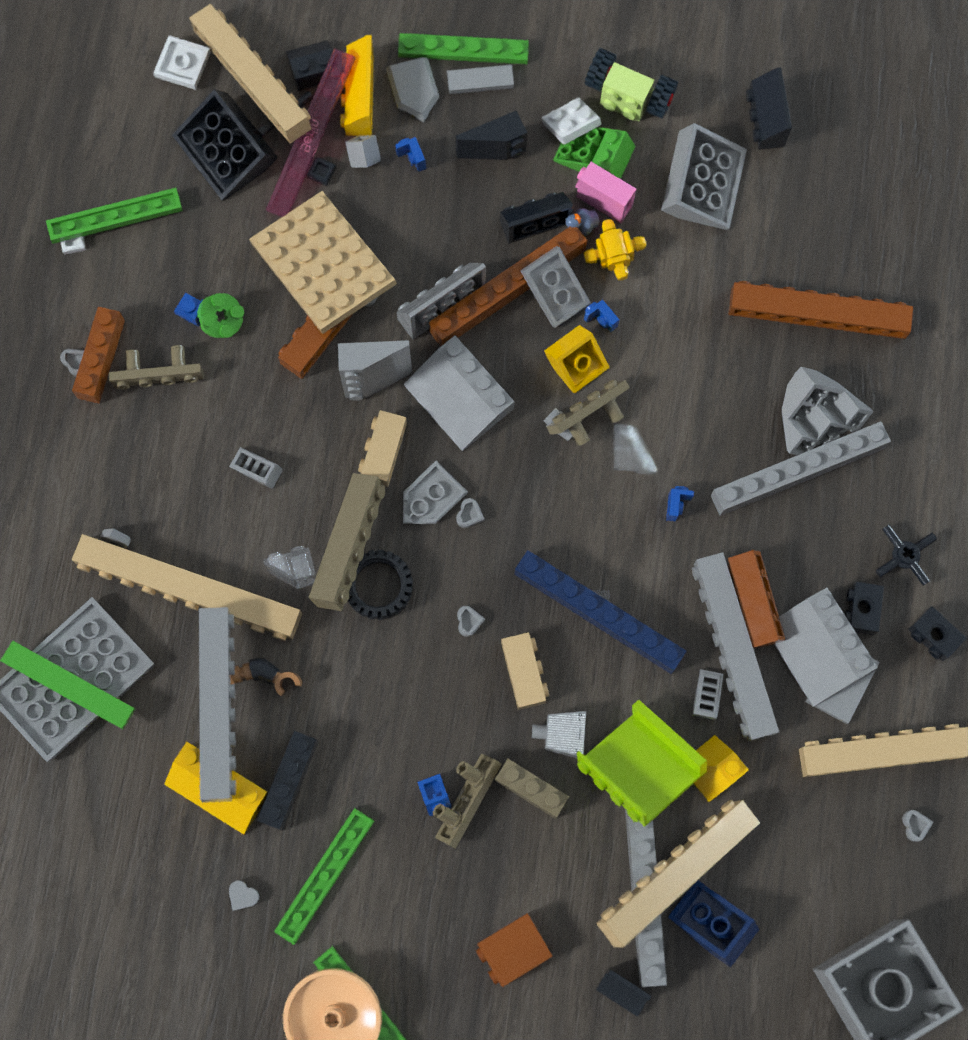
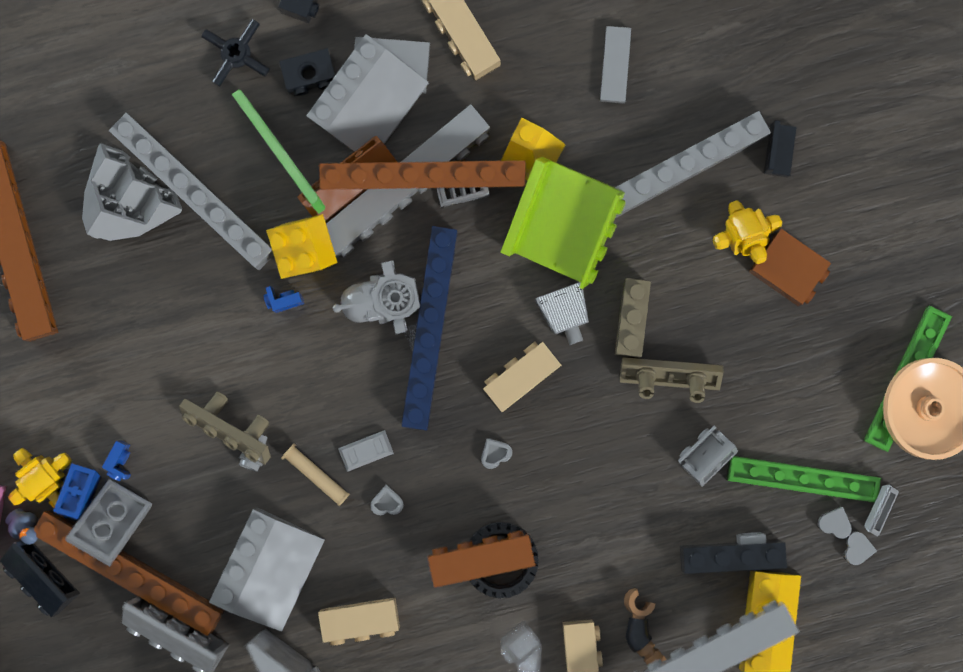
camera: 110 degrees left, 10 degrees up
(266, 931) = (881, 509): none -> light grey tile
(273, 886) = (835, 523): none -> light grey tile
(296, 804) = (751, 538): none -> light grey tile
(347, 542) = (474, 610): dark tan brick -> none
(384, 798) = (707, 455): none -> light grey hinge
(387, 564) = (480, 560): none -> dark orange brick
(431, 496) = (386, 549): light grey tile -> none
(433, 793) = (679, 409): blue bracket -> none
(519, 465) = (315, 475): none -> tan pin
(520, 516) = (366, 450): none -> light grey tile
(562, 925) = (747, 232): none -> yellow piece
(577, 358) = (175, 466): yellow slope -> none
(591, 272) = (77, 492): none -> blue hinge
(630, 451) = (249, 368): clear slope -> none
(642, 581) = (381, 299): none -> light grey helmet
(677, 873) = (652, 143): tan brick -> none
(714, 923) = (678, 92): dark blue slope -> none
(715, 535) = (302, 246): none -> yellow brick
(734, 659) = (422, 175): none -> dark orange brick
(762, 878) = (615, 64): none -> light grey tile
(805, 551) = (279, 151): none -> bright green tile

